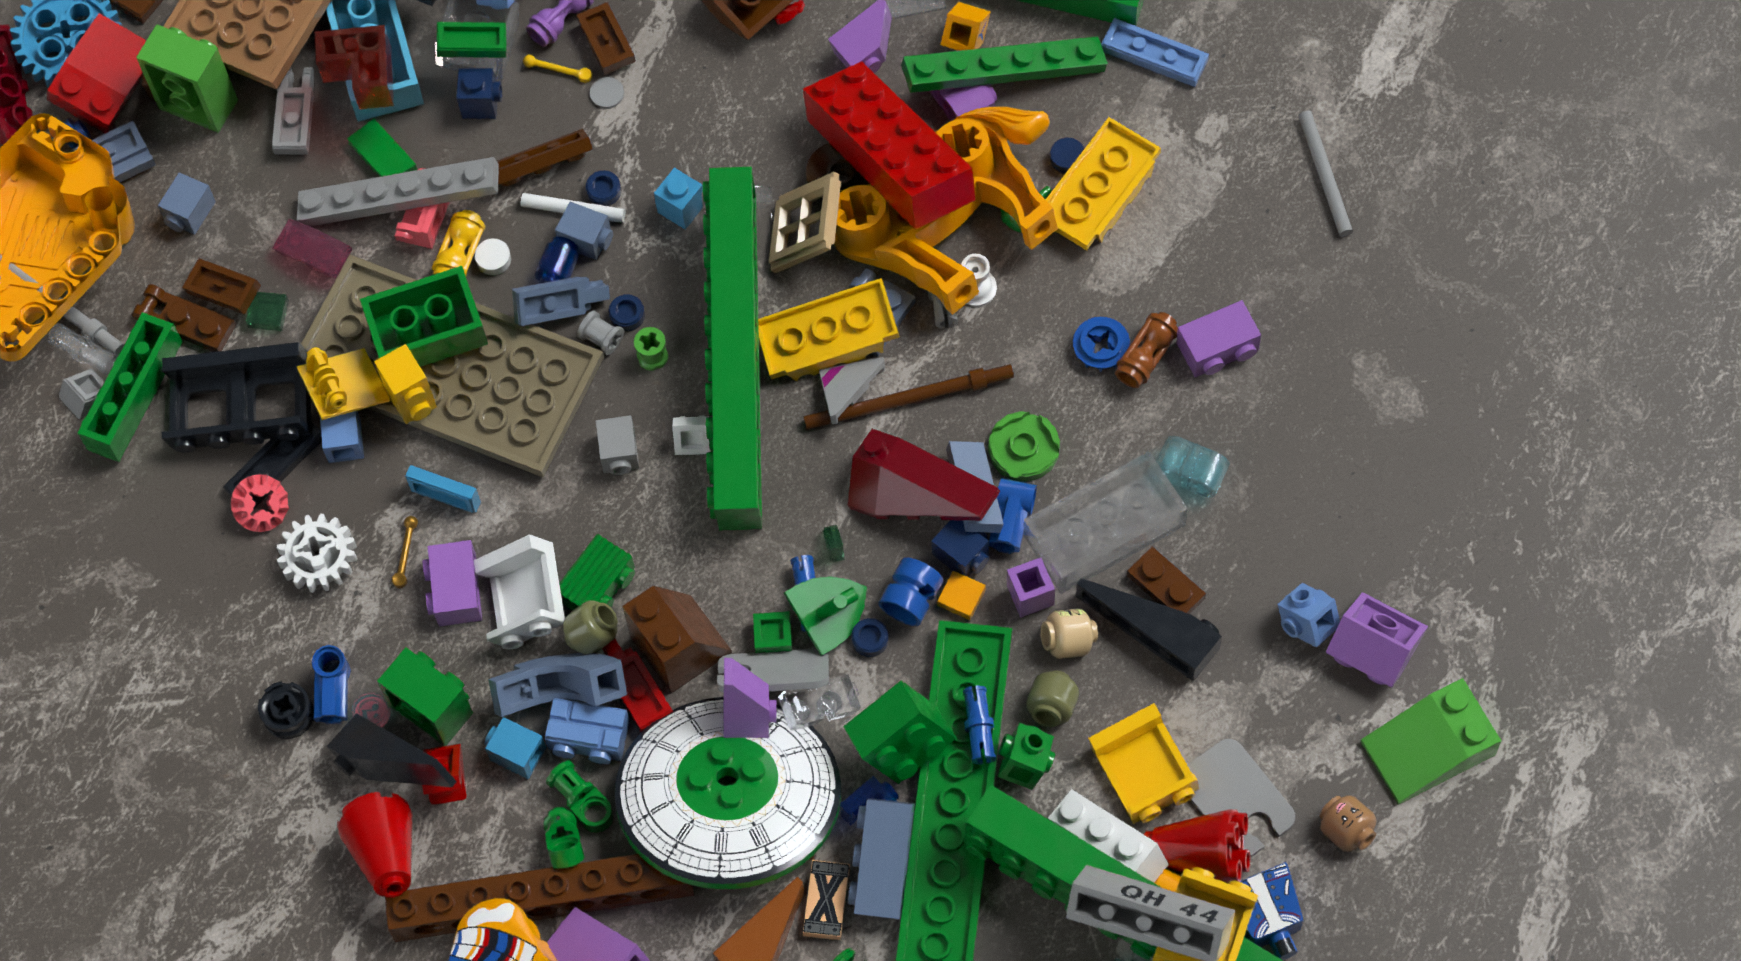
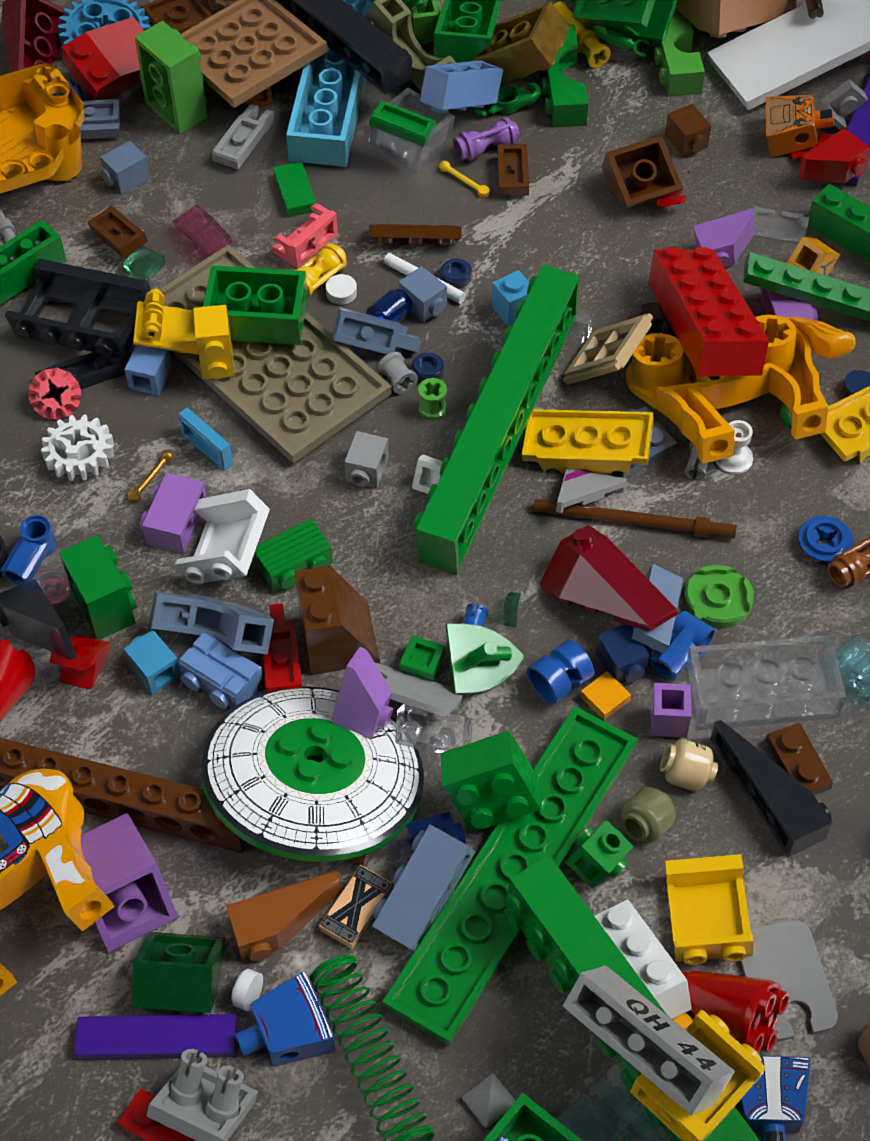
camera: 20 degrees right, 10 degrees down
(191, 321) = (79, 246): reddish brown plate -> none
(358, 56) = (306, 102): clear red brick -> none
(398, 192) = (291, 212): light grey plate -> none
(478, 93) = (390, 170): dark blue brick -> none
(565, 847) = (142, 757): green connector -> none
(580, 795) = (192, 730): green connector -> none
(590, 627) = (265, 587): olive head -> none
(606, 92) = (494, 209): light grey piece -> none
(870, 637) = (506, 698): dark blue tile -> none
(979, 725) = (568, 808): blue pin -> none

